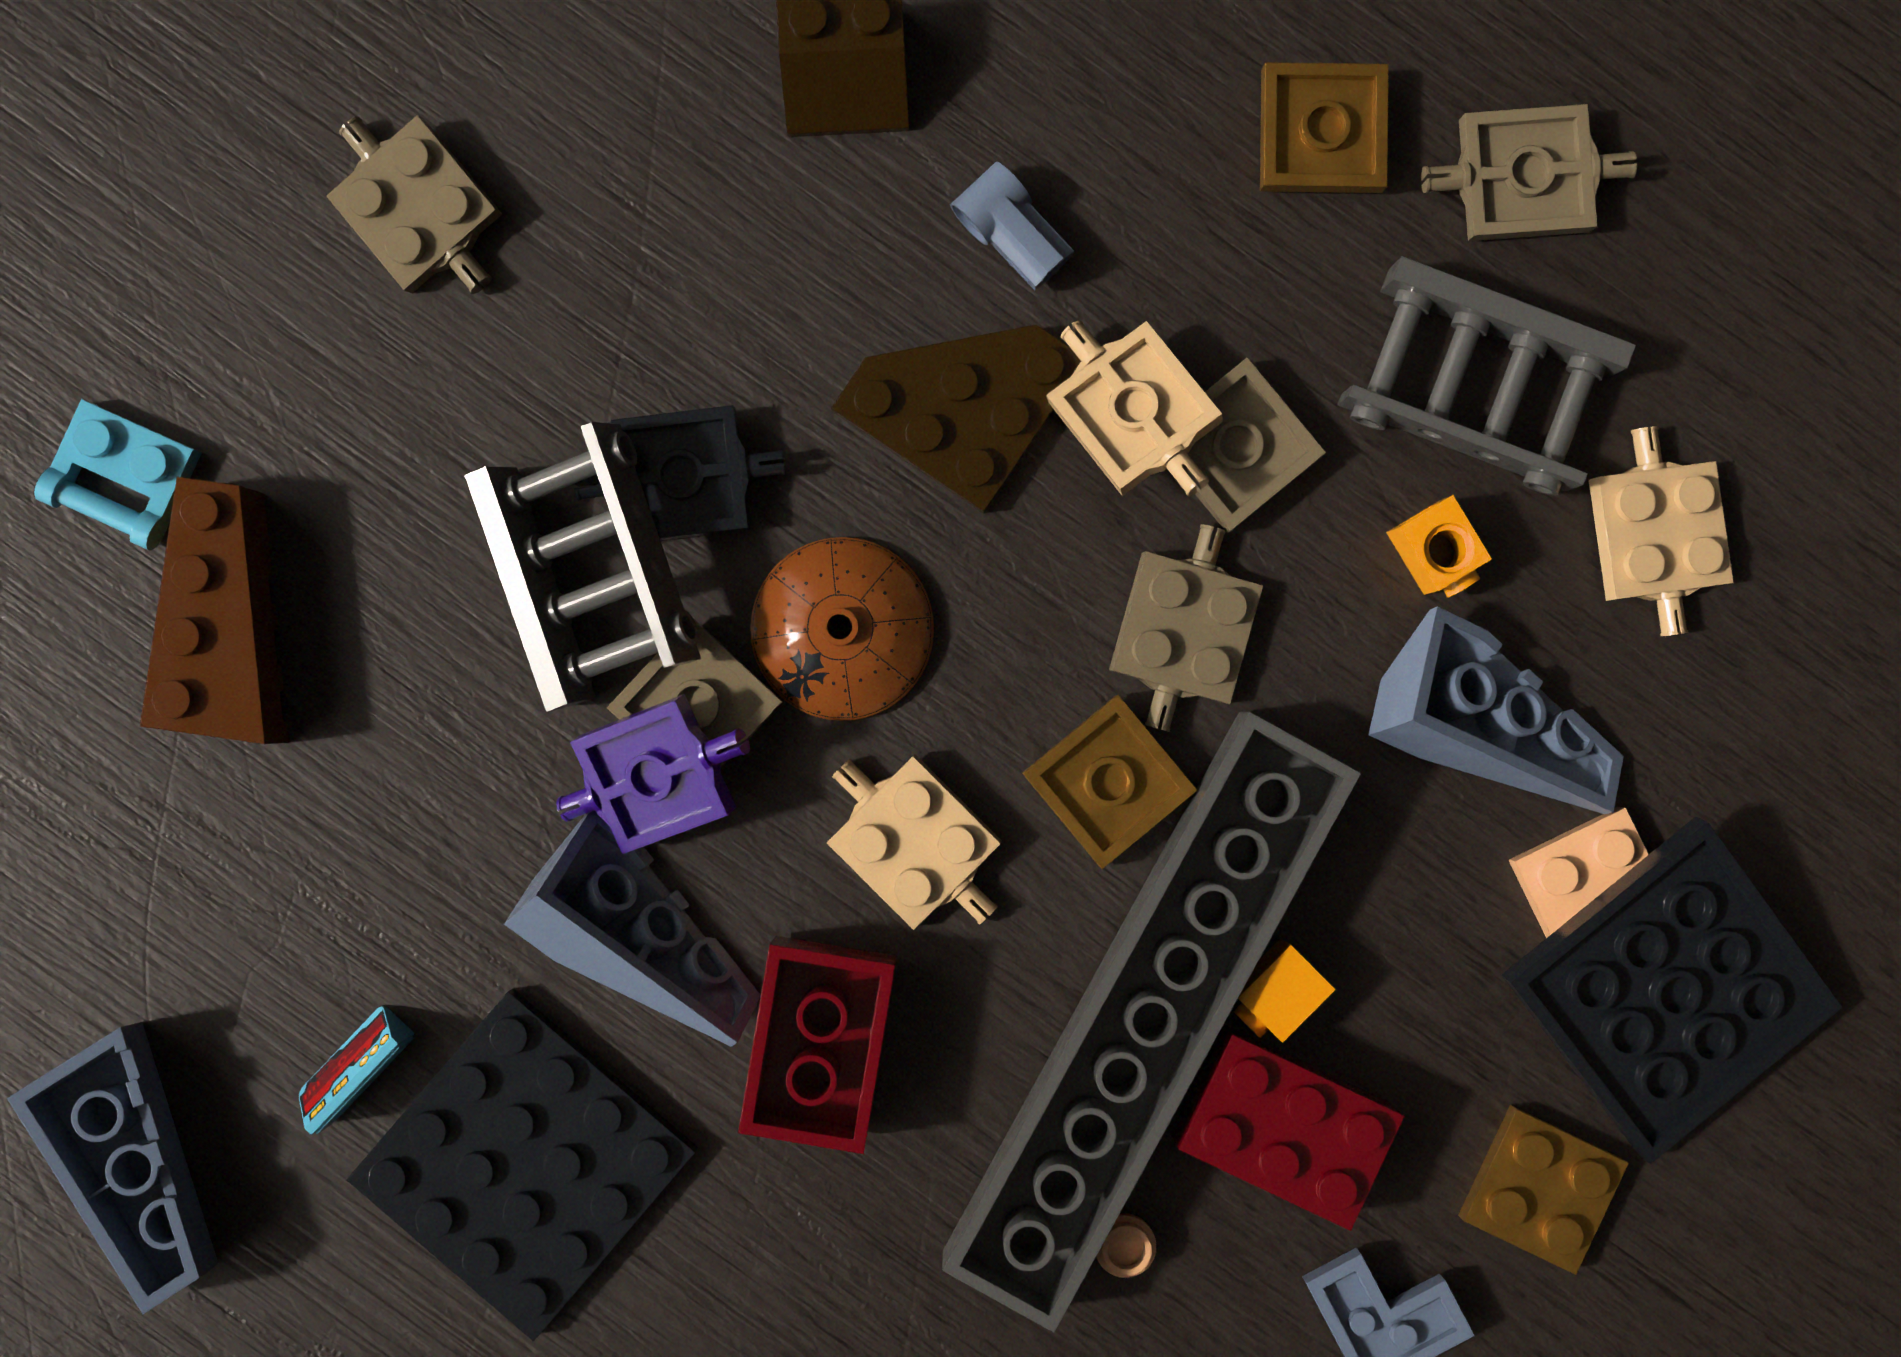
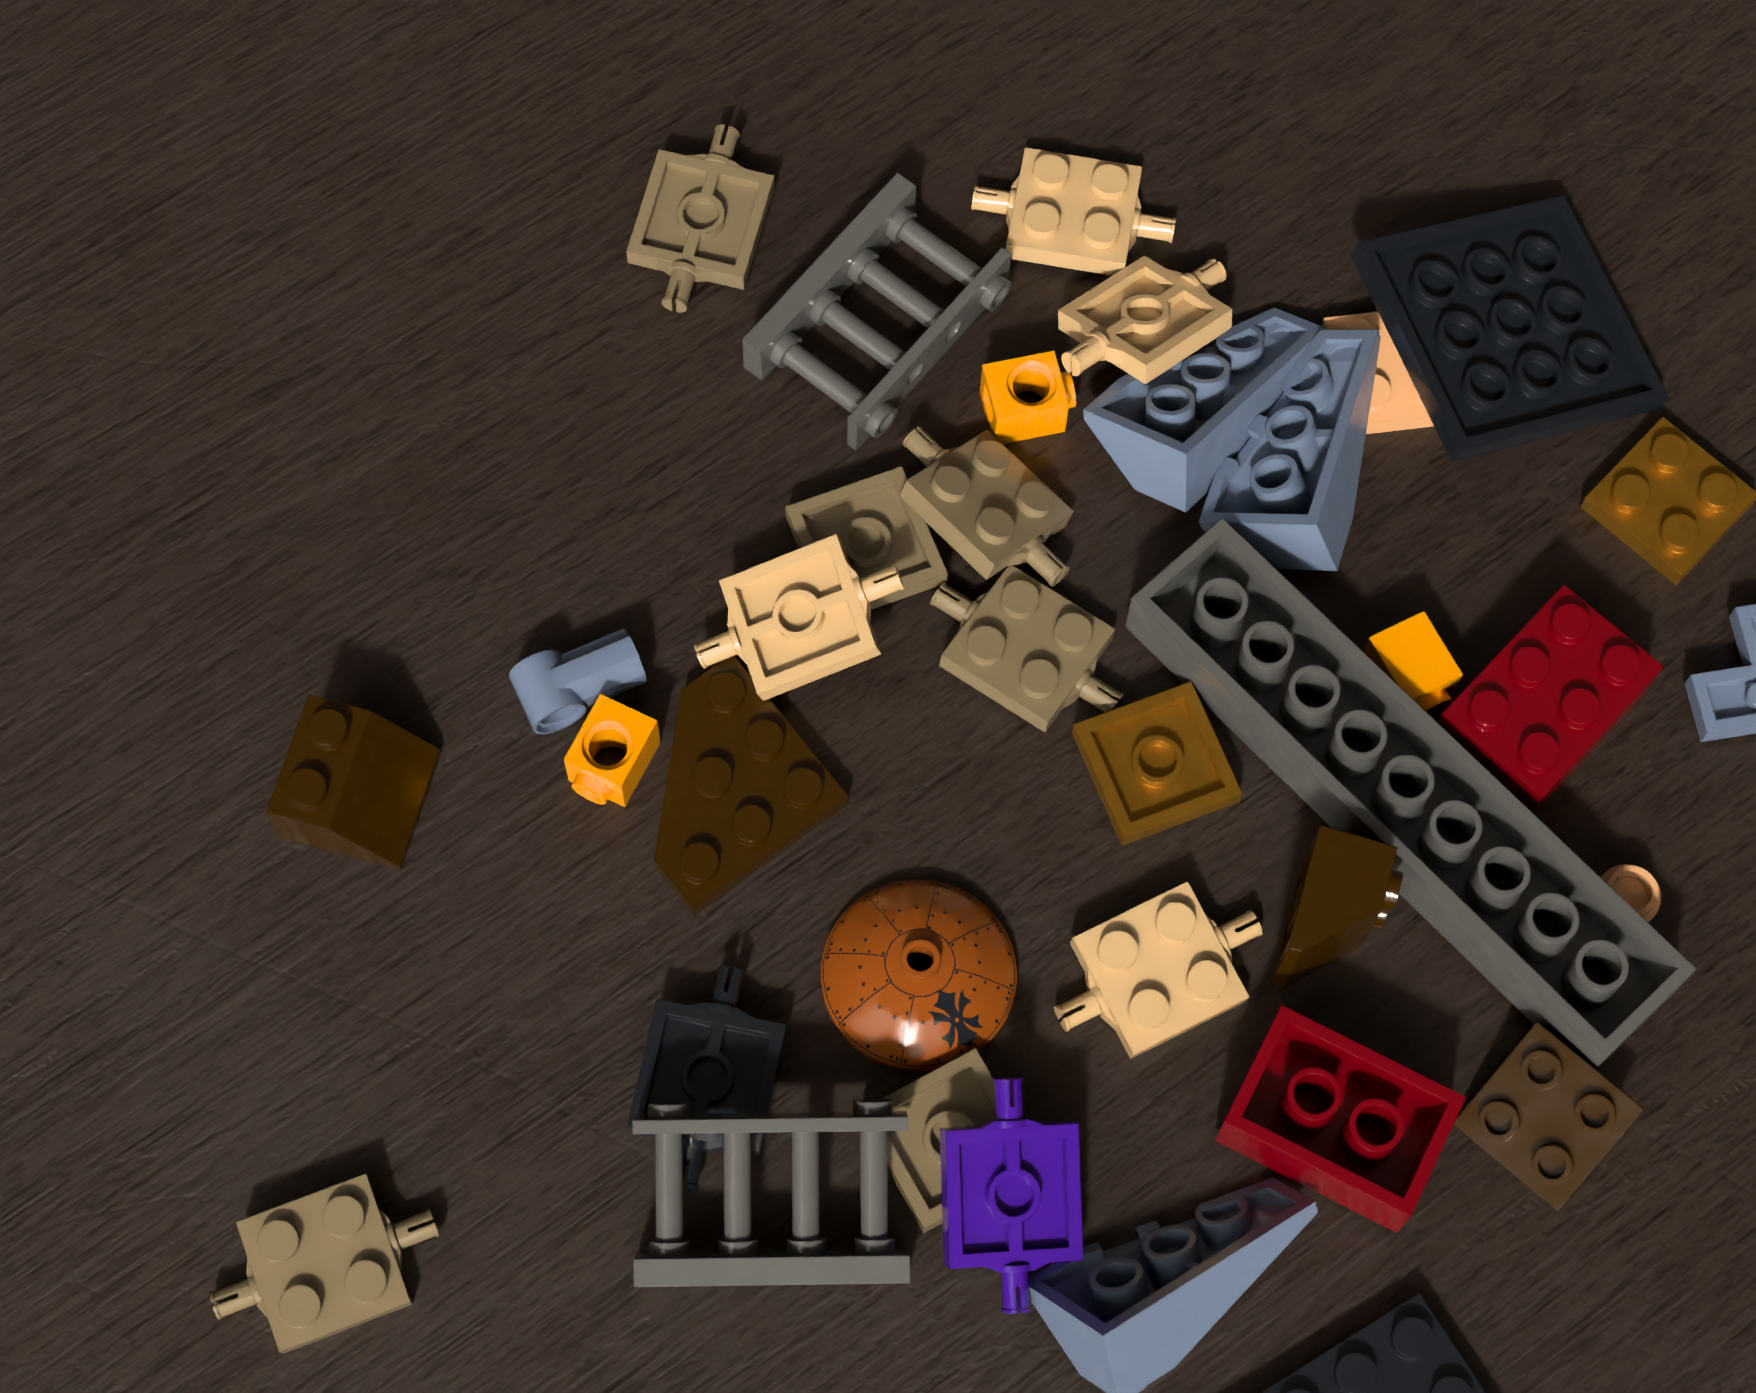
camera: 75 degrees left, 20 degrees down
(891, 1225) = (1548, 1116): none -> dark brown hinge
(971, 263) = (611, 726): none -> light orange brick
(1013, 984) = (1336, 901): none -> dark brown slope
(1314, 544) = (986, 504): none -> dark tan plate
(1324, 127) = (591, 376): pearl gold plate -> none
(1450, 829) = (1301, 467): none -> sand blue wedge
(1560, 636) = (1145, 319): none -> tan plate

